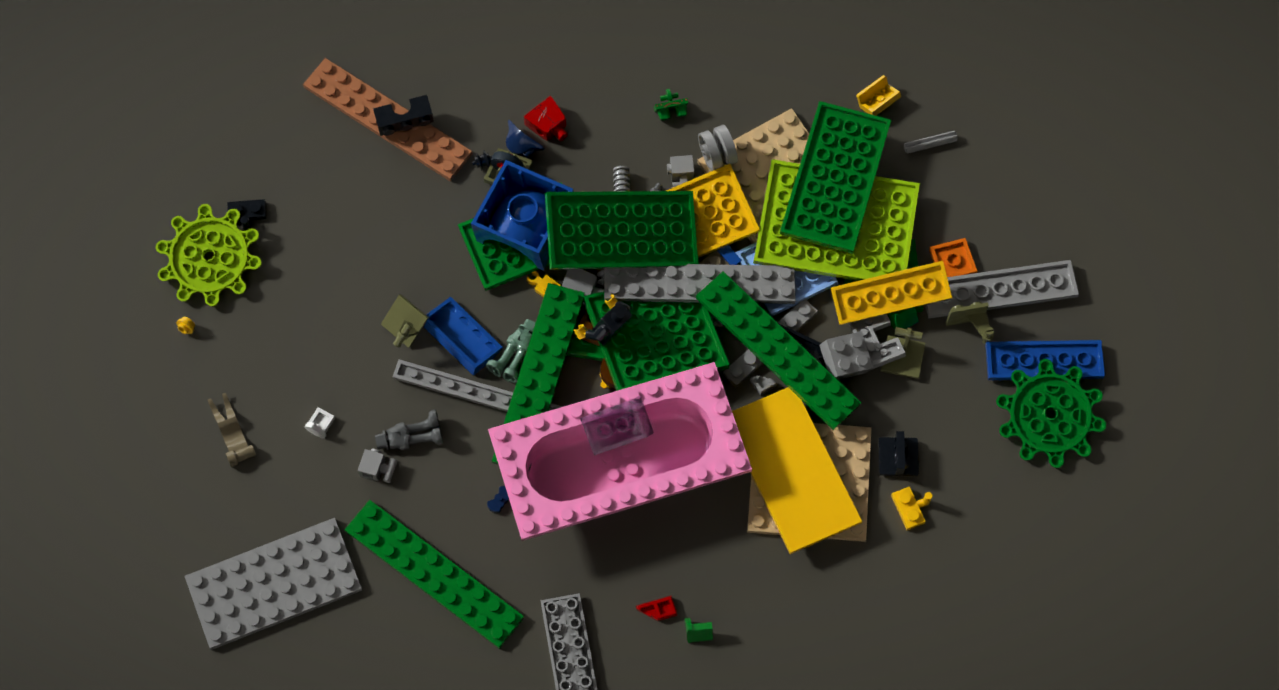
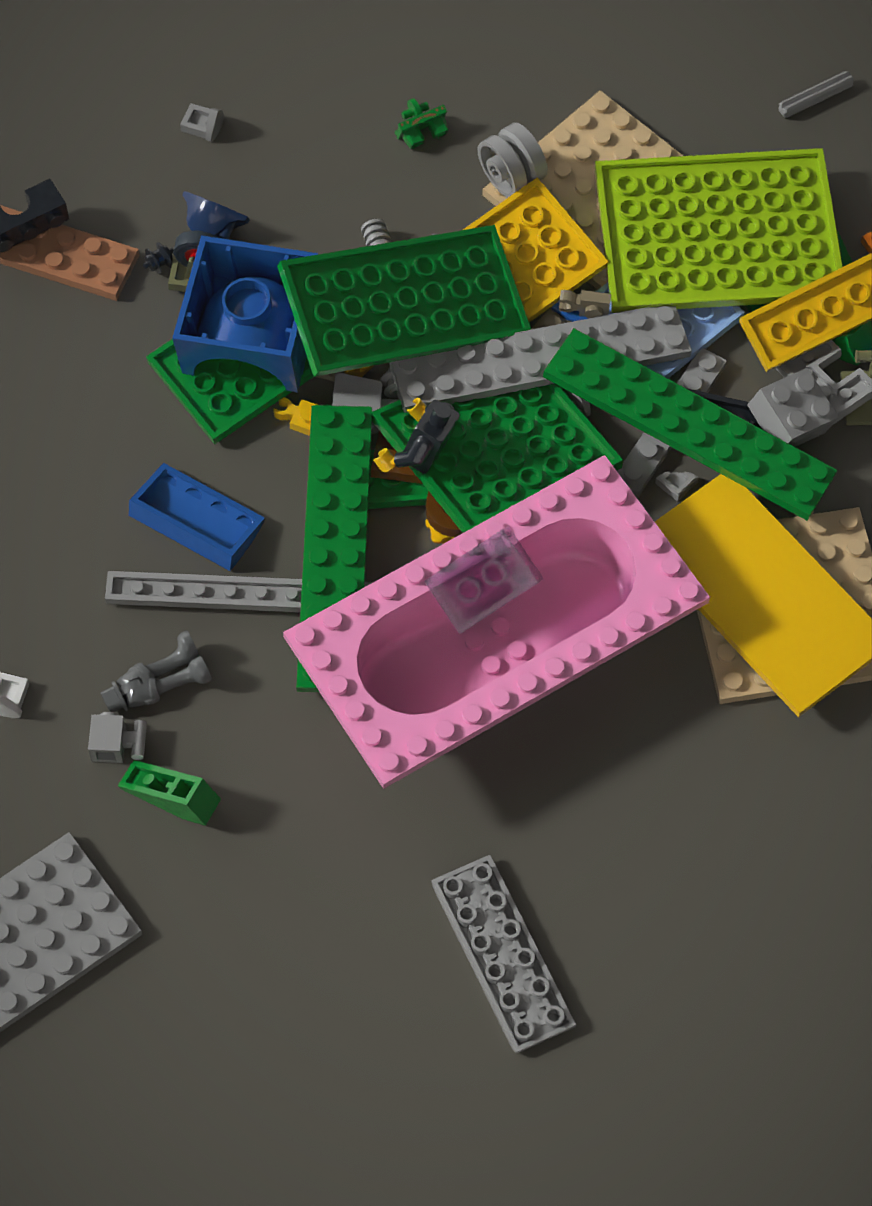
camera: 15 degrees left, 5 degrees down
(400, 507) = (172, 791): none -> green slope
(404, 321) = (102, 512): olive plate -> none
(434, 574) = (252, 881): green plate -> none
(499, 500) = (324, 744): dark blue piece -> none
(516, 342) = (290, 506): sand green piece -> none
(534, 73) = (202, 122): none -> light grey tile
(547, 120) = (241, 182): red torso -> none
(658, 609) = (620, 849): red tile -> none
(680, 169) = (462, 205): light grey brick -> none
(698, 631) = (691, 867): green tile -> none
(739, 255) = (589, 303): none -> dark tan plate
(835, 177) = (699, 165): green plate -> none
(877, 96) = (720, 48): yellow bracket -> none

